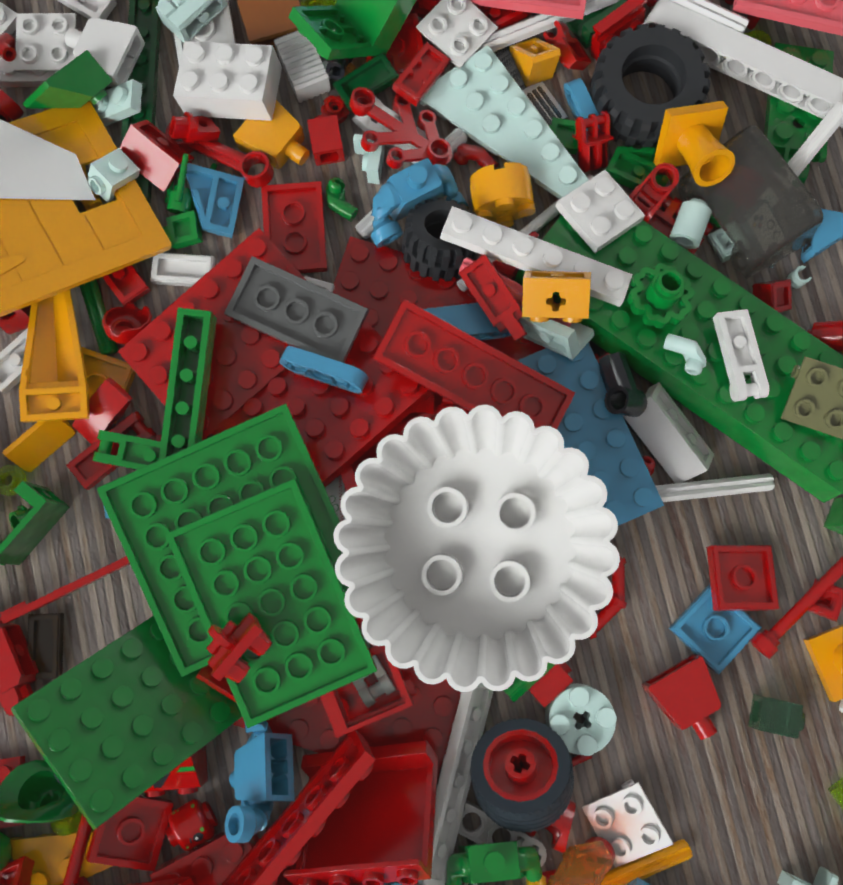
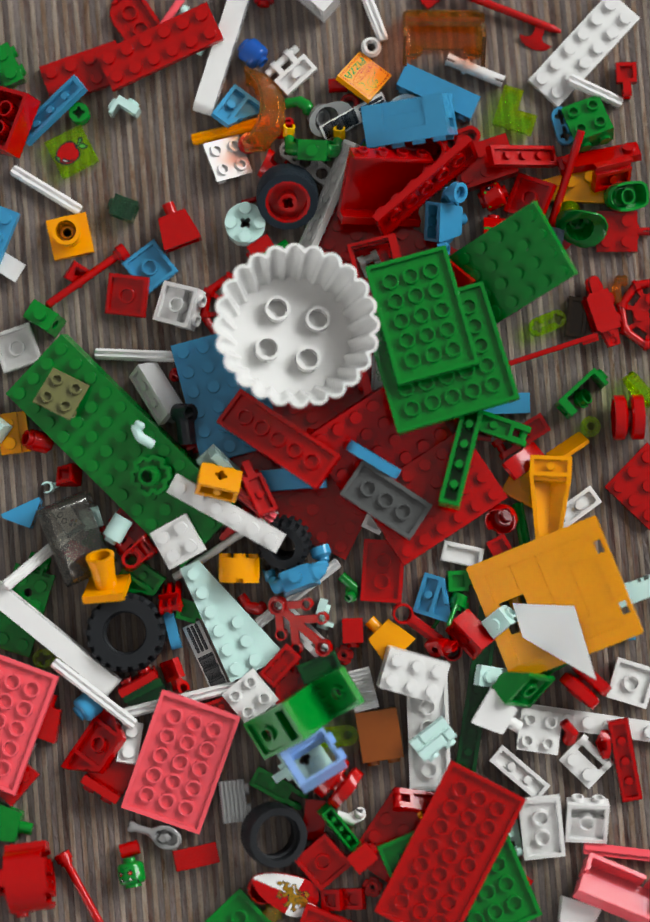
camera: 165 degrees left, 5 degrees up
(92, 635) = (544, 319): none -> clear neon green beam
(230, 645) = (445, 292): red hips -> none
(535, 60) = (200, 671): light orange slope -> none
(658, 572) = (180, 305): none -> white plate
(741, 355) = (107, 429): white plate -> none

